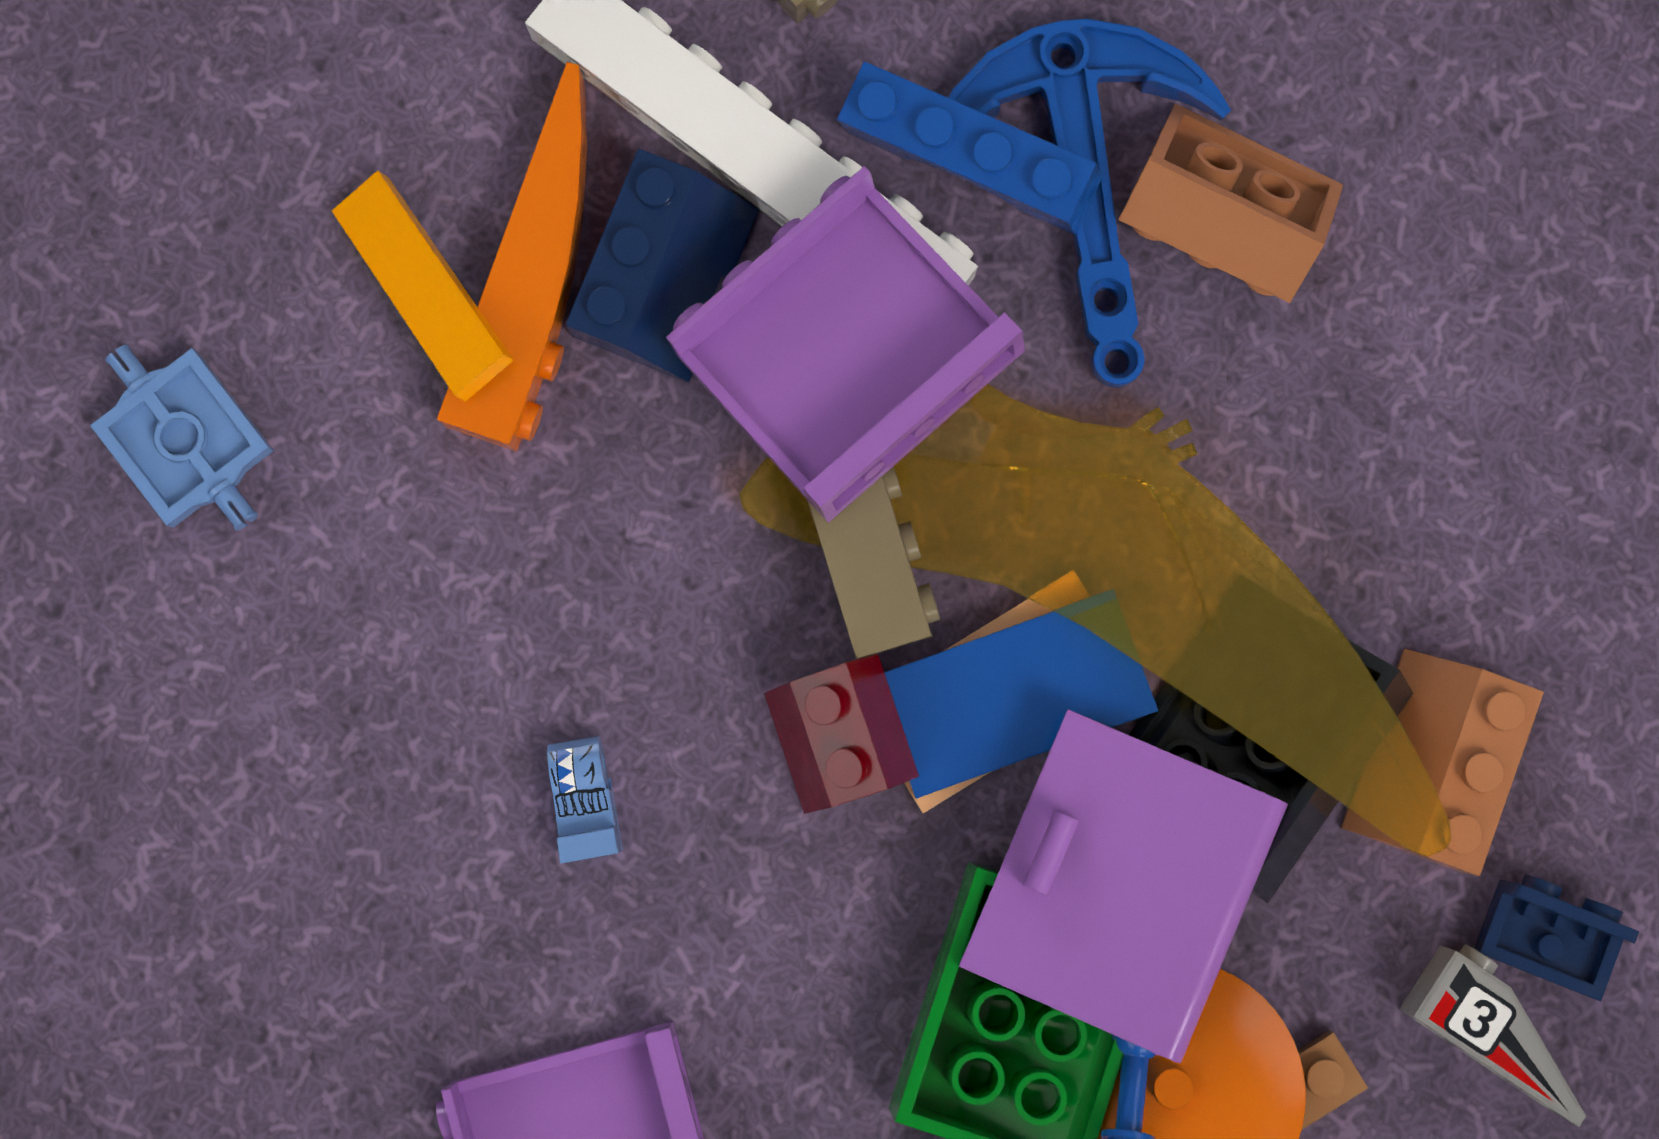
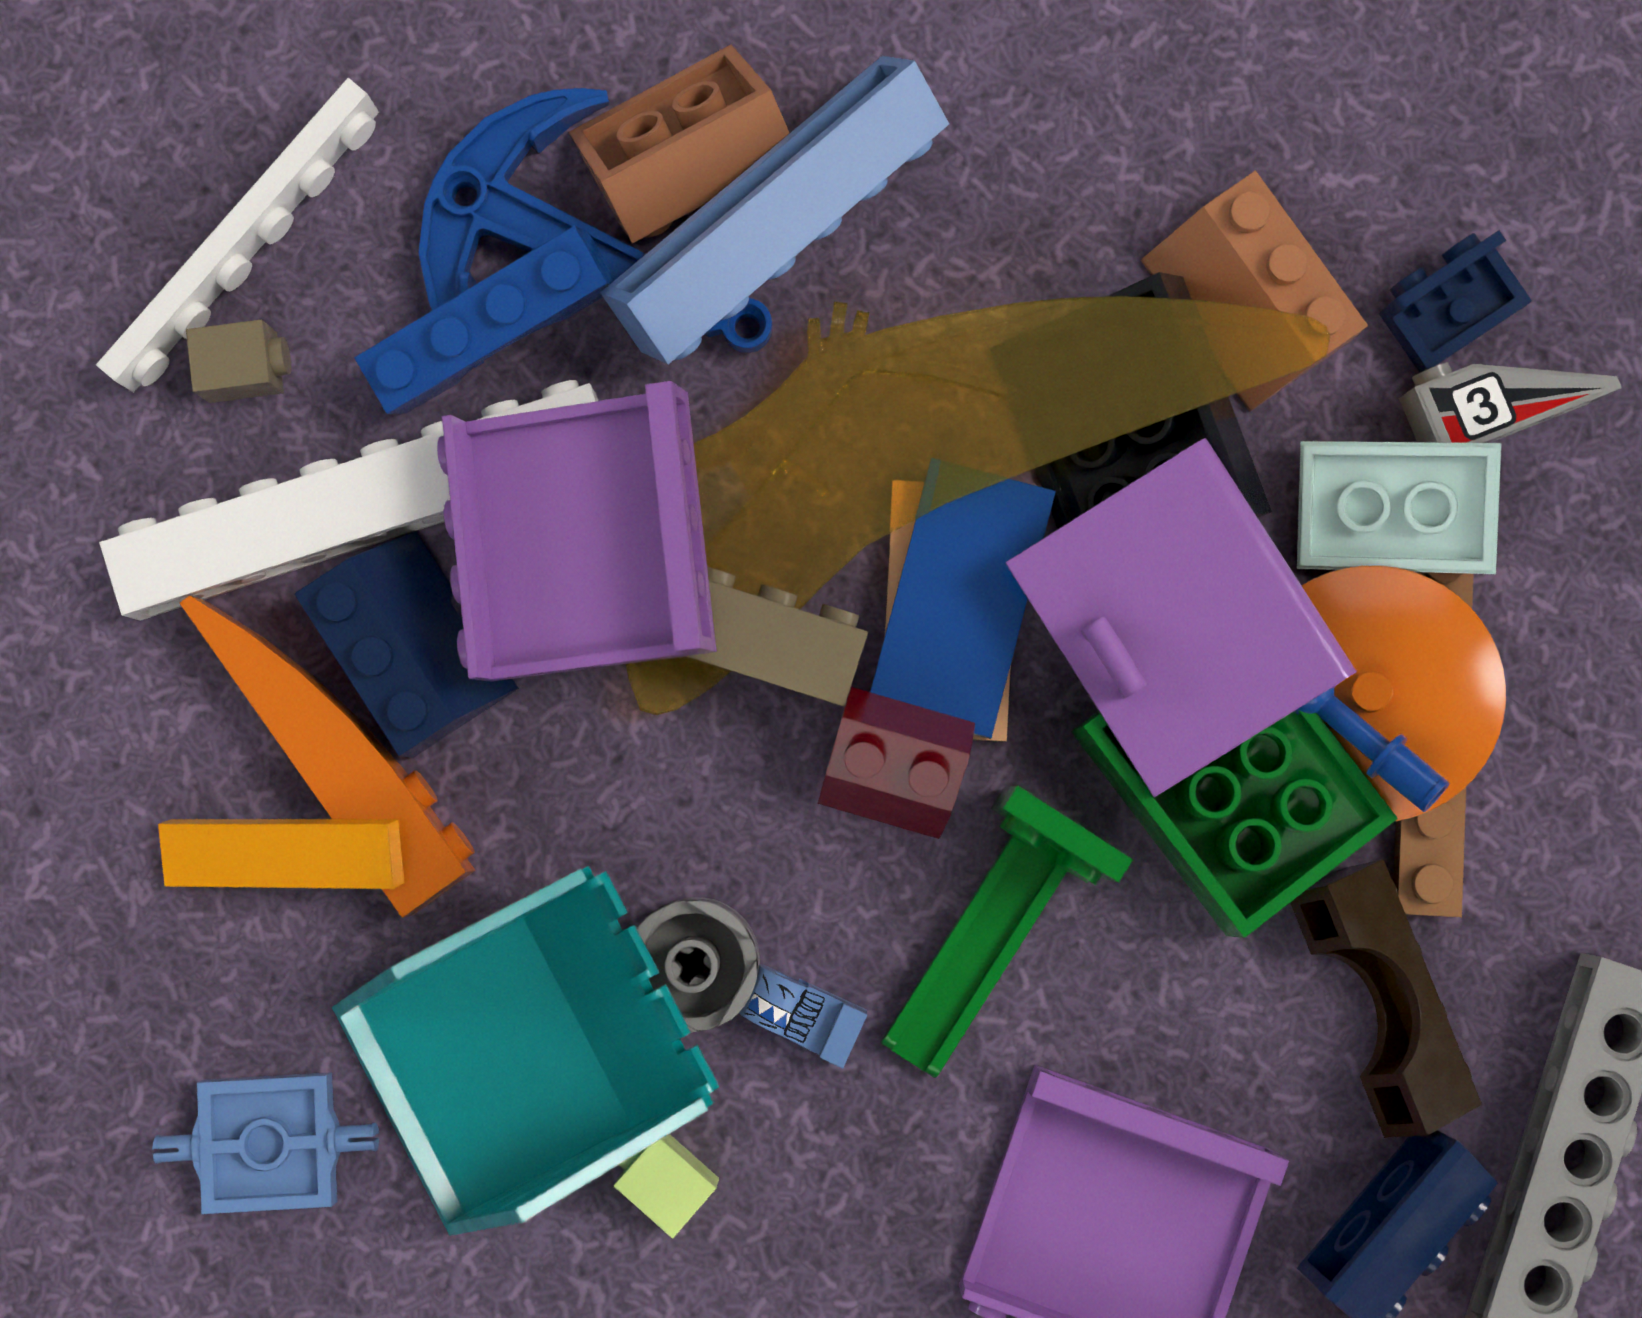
camera: 50 degrees left, 0 degrees up
(370, 780) = (666, 1183): none -> yellowish green brick
(396, 597) = (527, 1054): none -> teal windscreen
(535, 656) = (730, 955): none -> light grey brick
(763, 909) = (996, 923): none -> green bracket
(1230, 318) = (776, 209): none -> medium blue brick
(1347, 1006) = (1399, 506): none -> light aqua tile

